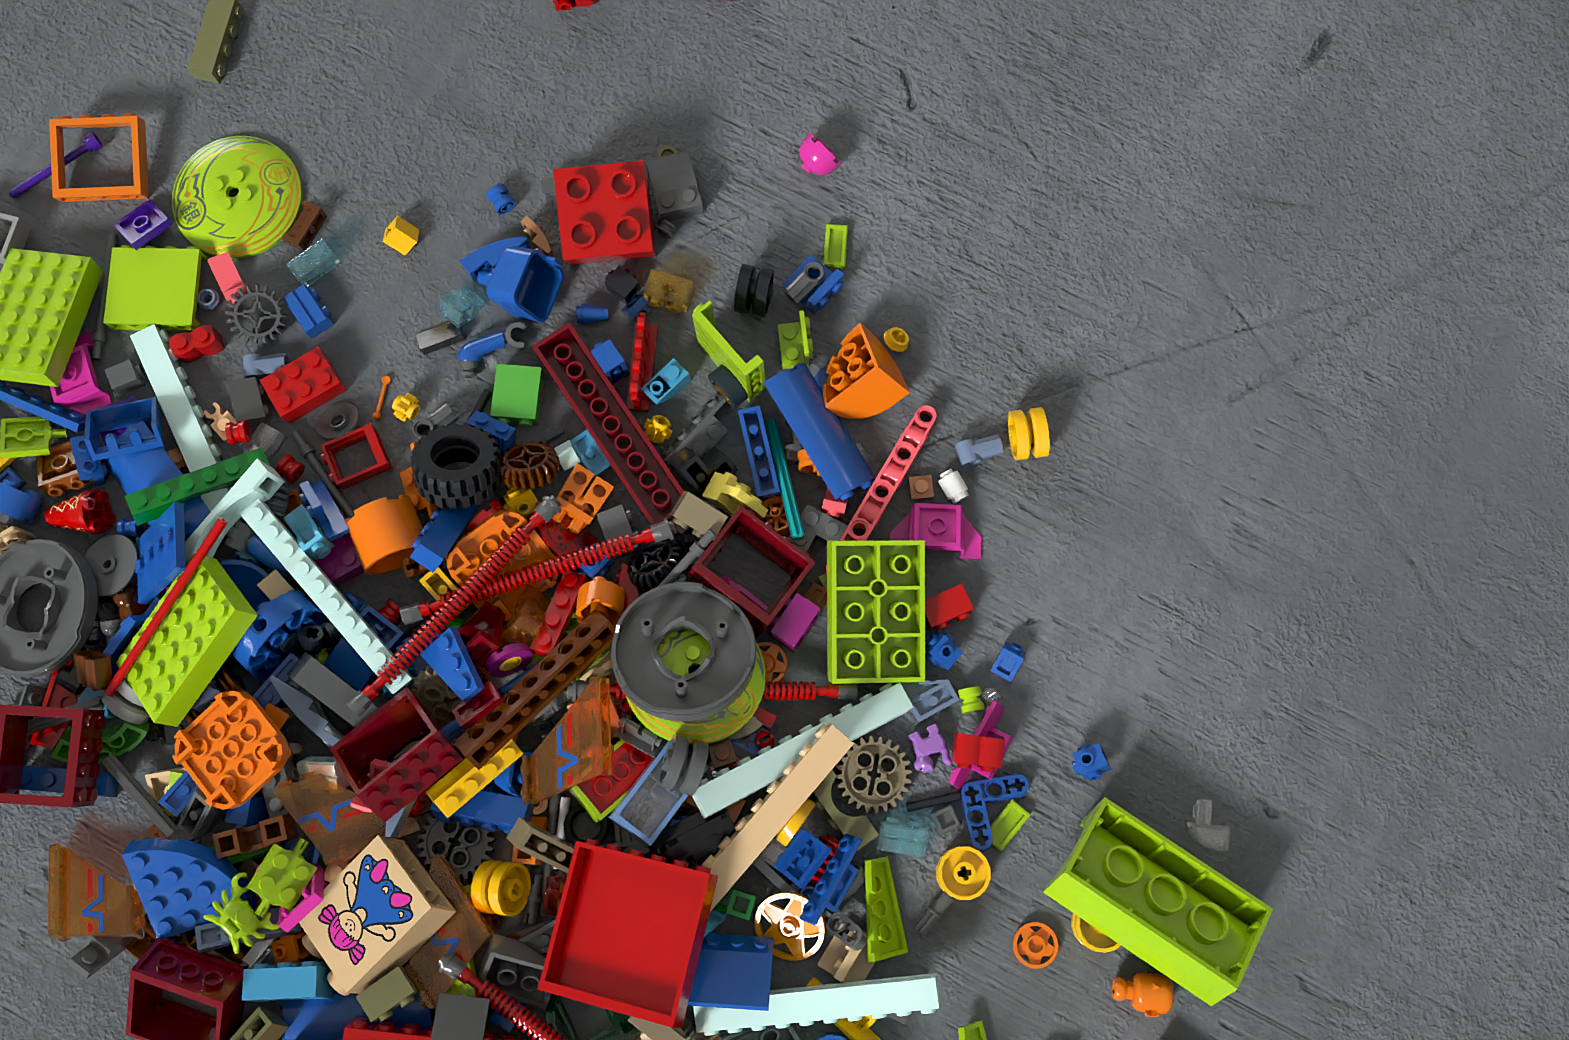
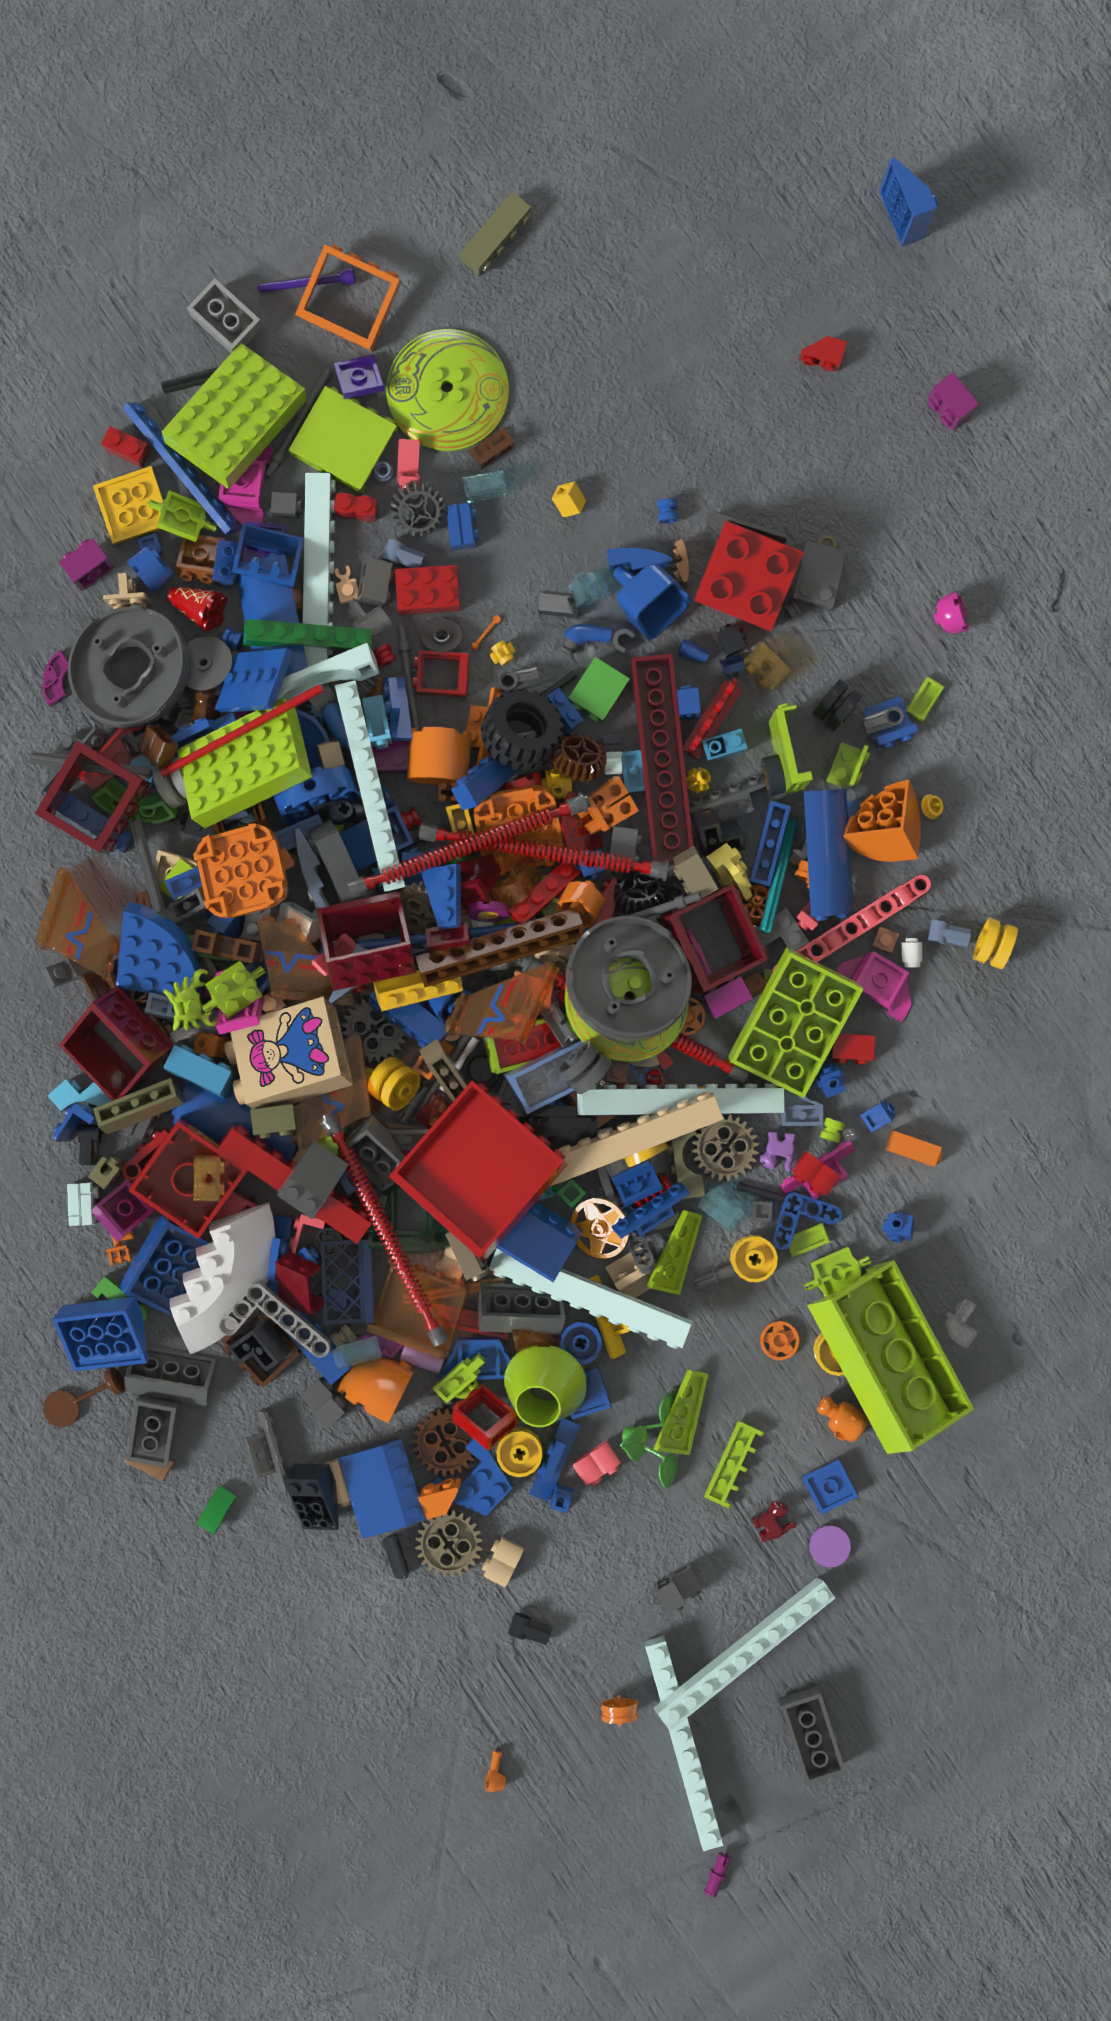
camera: 25 degrees right, 10 degrees up
(110, 627) = (183, 715): clear hinge -> none
(238, 432) = (358, 606): red wheel -> none
(1052, 841) = (836, 1271): none -> lime plate
(1062, 675) = (914, 1149): none -> orange brick

